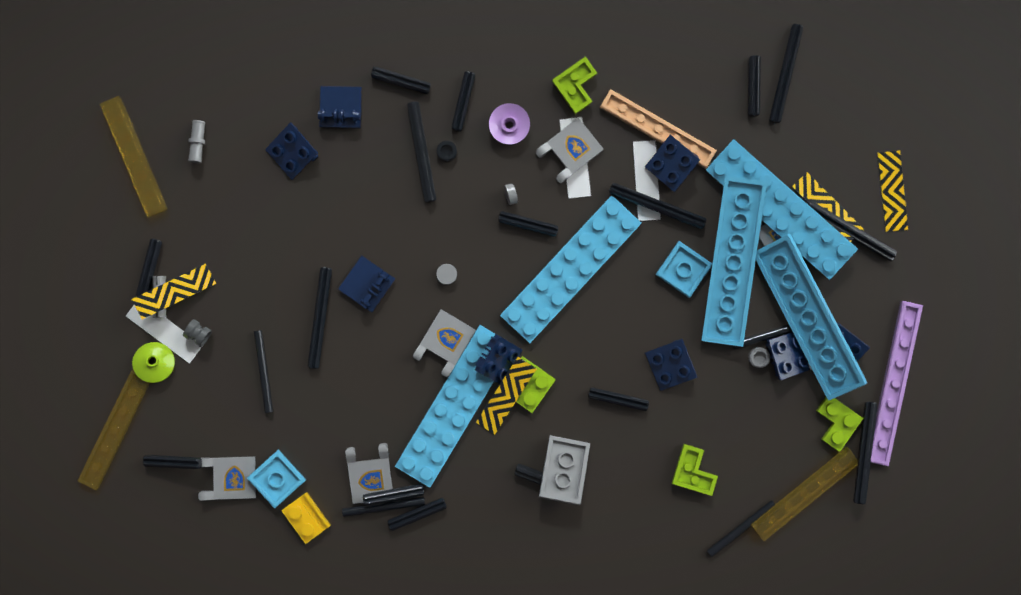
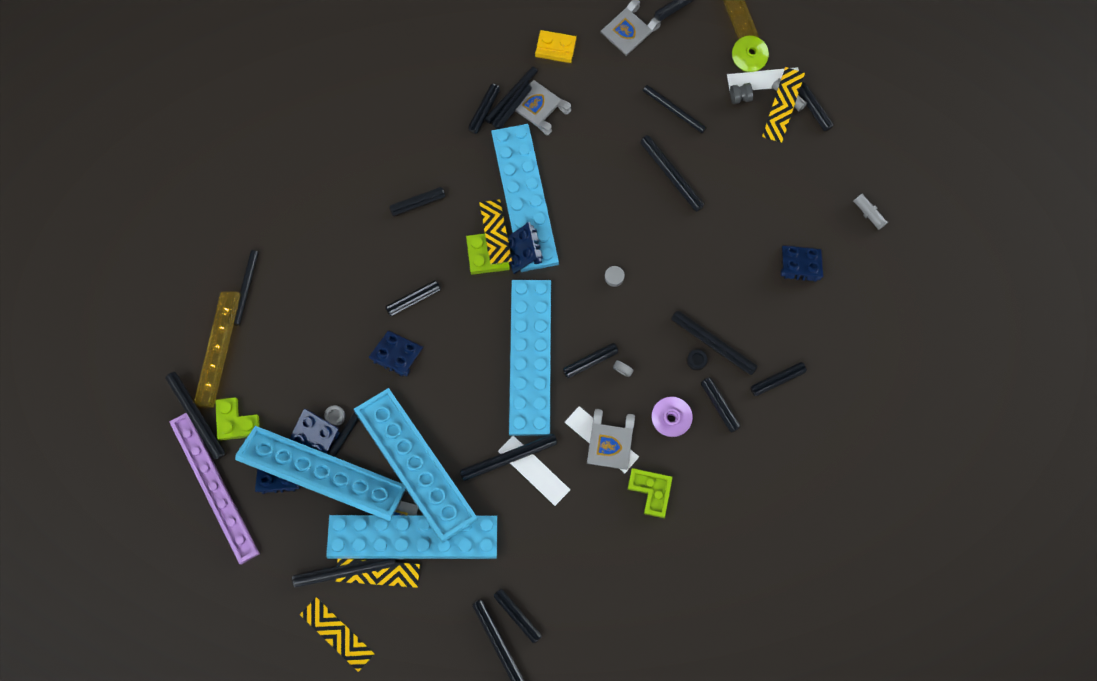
camera: 145 degrees right, 15 degrees down
(133, 156) = (900, 167): clear yellow tile -> none
(276, 478) = (598, 52): medium azure tile -> none
(340, 107) = (800, 322): dark blue hinge -> none
(366, 284) = (662, 221): dark blue hinge -> none
(447, 339) = (572, 234): light grey flag -> none
(564, 470) = (408, 215): light grey plate -> none
(654, 126) = (560, 515): light nougat tile -> none
(672, 163) = (525, 496): dark blue hinge -> none
(684, 269) = (447, 429): medium azure tile -> none
(687, 471) = (314, 289): lime plate -> none

